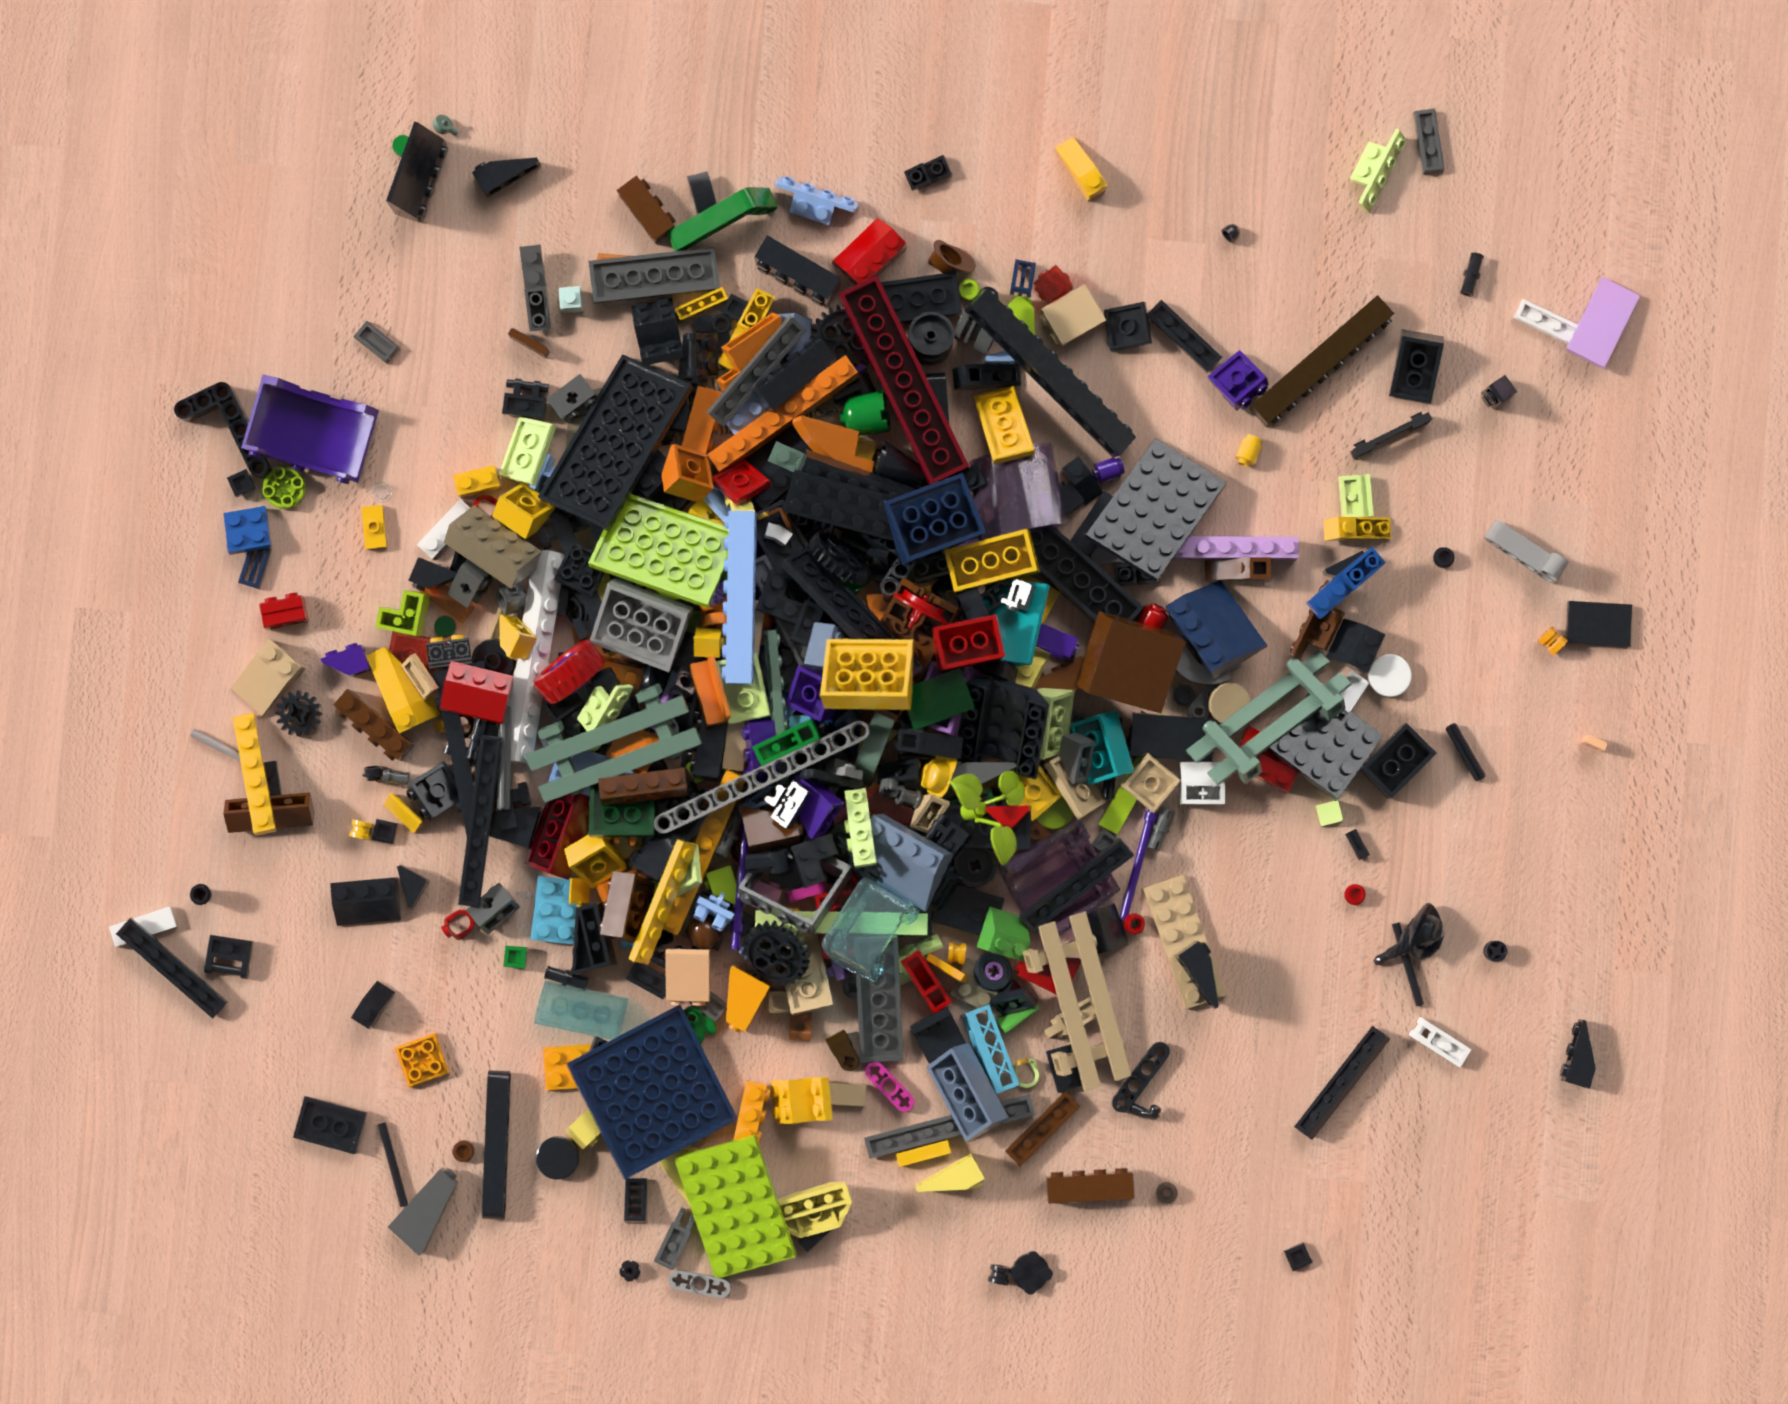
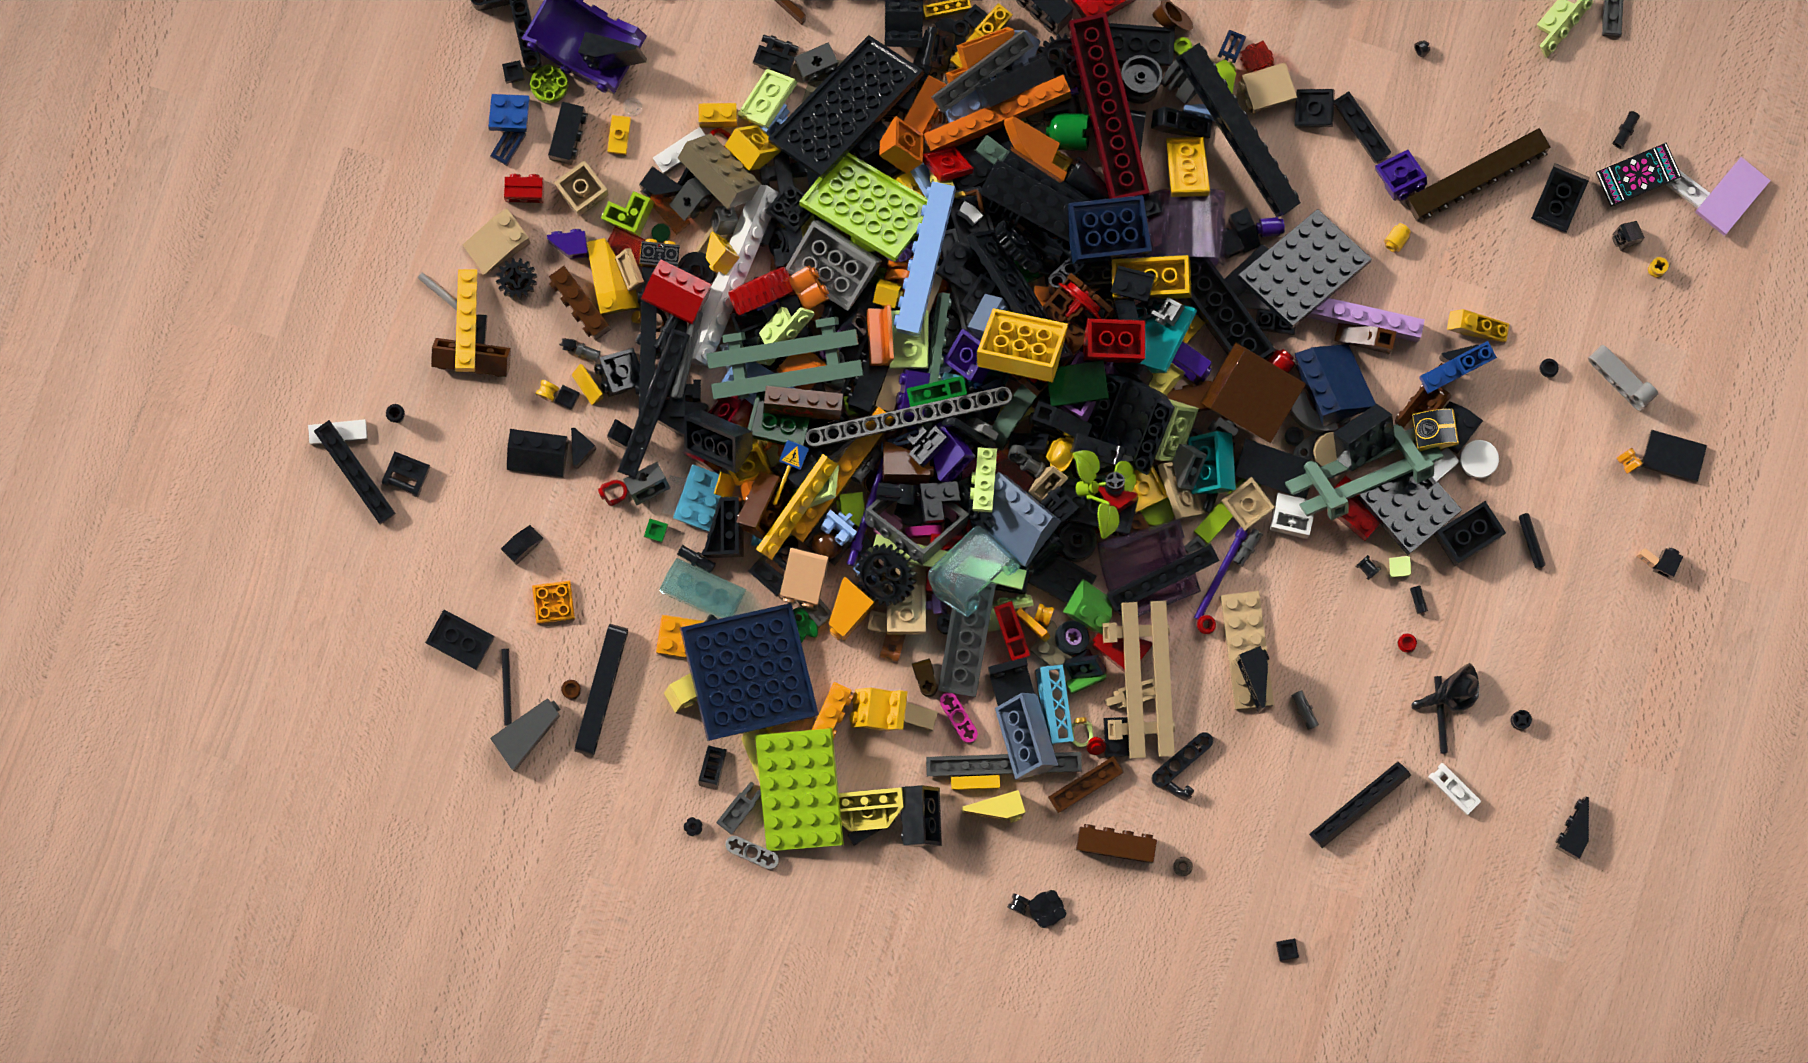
camera: 15 degrees right, 5 degrees down
(317, 539) = (567, 133): none -> black brick
(340, 442) = (608, 53): none -> black slope
(346, 598) = (581, 188): none -> tan brick
(451, 861) = (619, 434): none -> black slope
(557, 1157) = (652, 713): black tile -> none
(558, 847) = (717, 440): none -> black slope
(620, 657) = (808, 287): none -> orange brick
(645, 848) = (794, 456): none -> piece
(873, 1206) = (921, 816): none -> black brick
(973, 573) = (1133, 284): none -> black plate
(975, 764) = (1100, 448): none -> black plate
(1002, 796) = (1118, 481): none -> black wheel
(1044, 1083) = (1096, 746): none -> red plate
(1106, 703) = (1223, 426): none -> dark grey bracket
(1107, 928) = (1181, 622): black slope -> none
(1261, 683) = (1364, 437): none -> black brick
(1261, 992) = (1305, 709): none -> dark grey pin
(1295, 822) = (1368, 567): none -> black bush
(1336, 655) = (1435, 429): none -> black slope
(1356, 496) = (1483, 296): yellowish green plate -> none
(1417, 421) = (1550, 244): black container -> none
(1495, 321) = (1638, 174): none -> black tile
(1540, 425) = (1659, 261): none -> yellow bush
(1618, 743) = (1668, 563): none -> black brick

